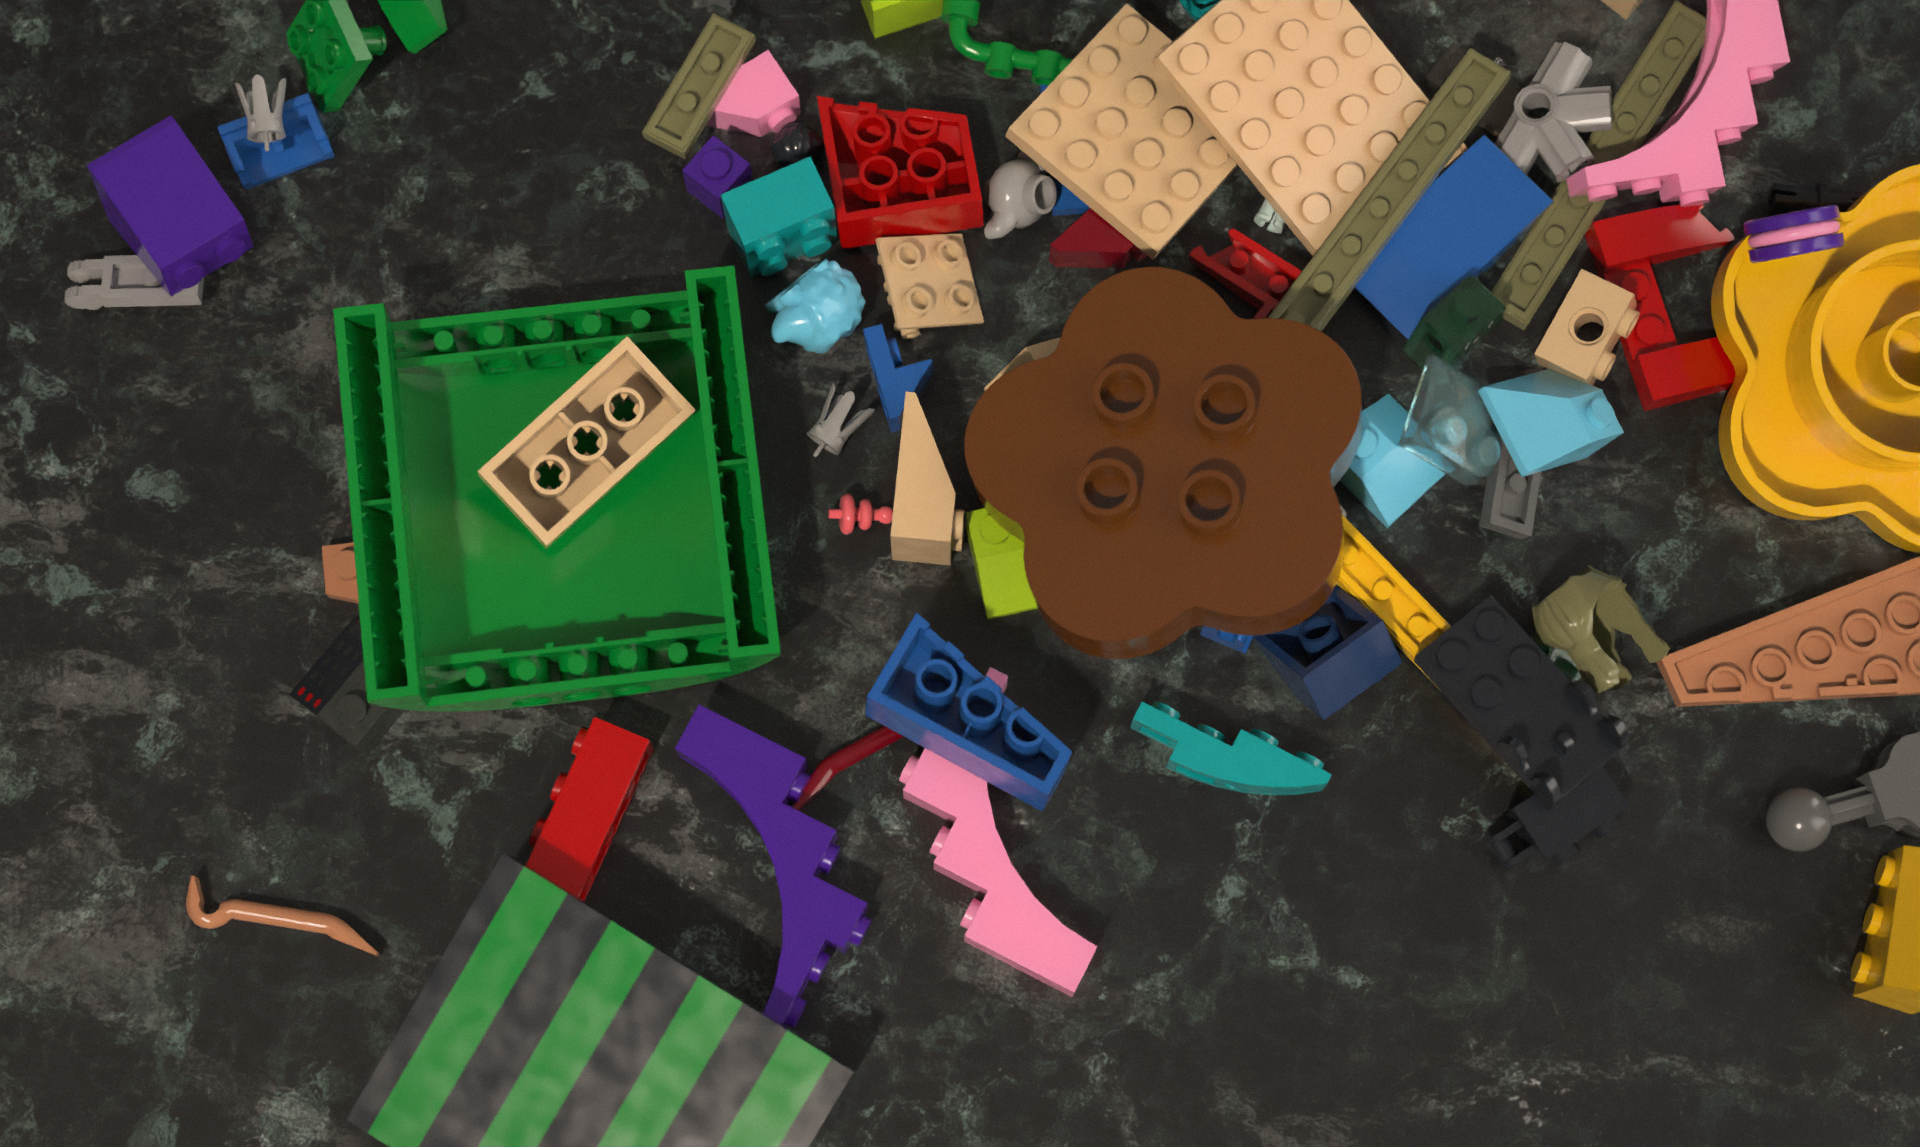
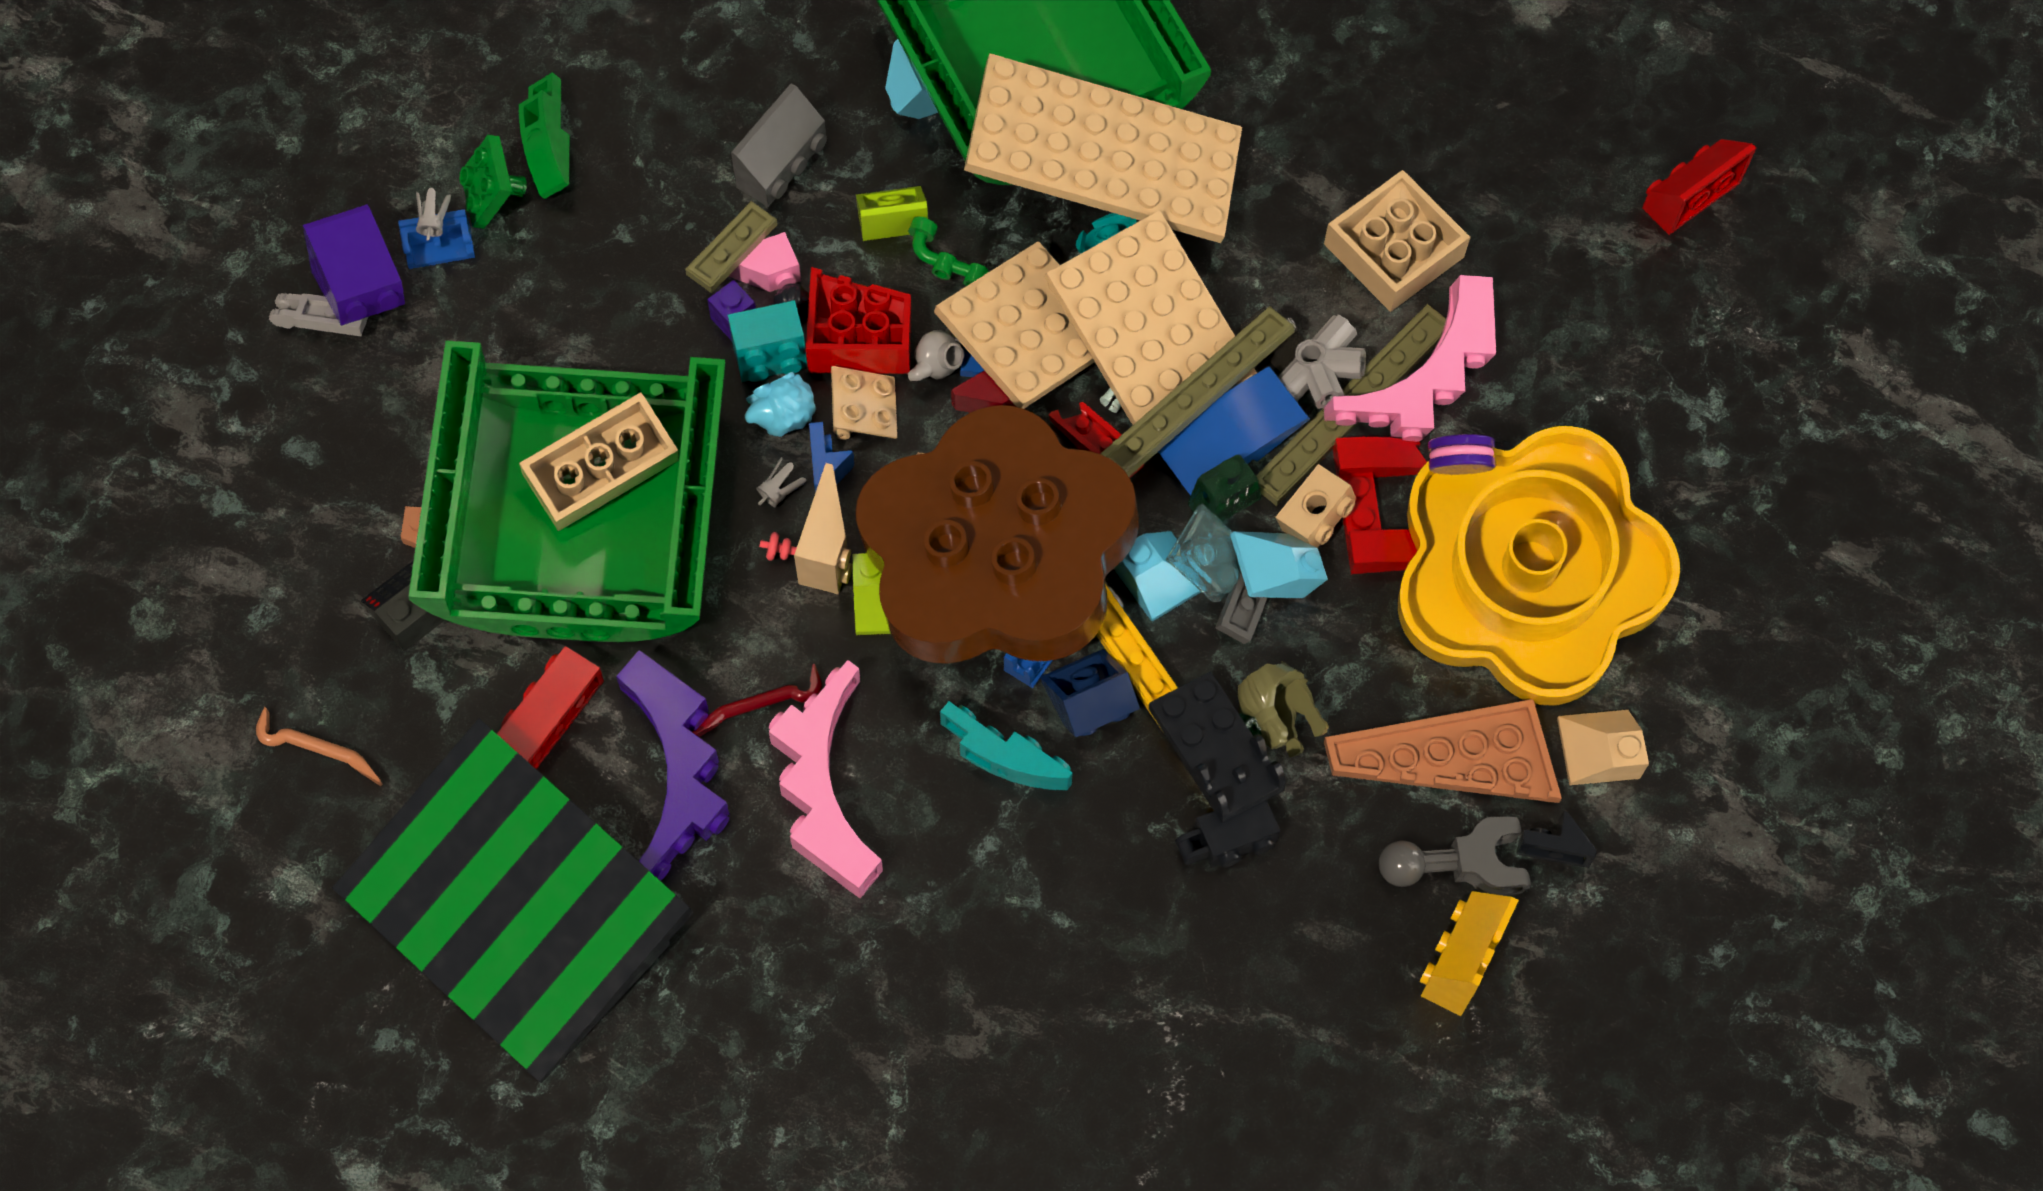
camera: 10 degrees right, 10 degrees down
(964, 717) = (818, 685): blue wedge -> none

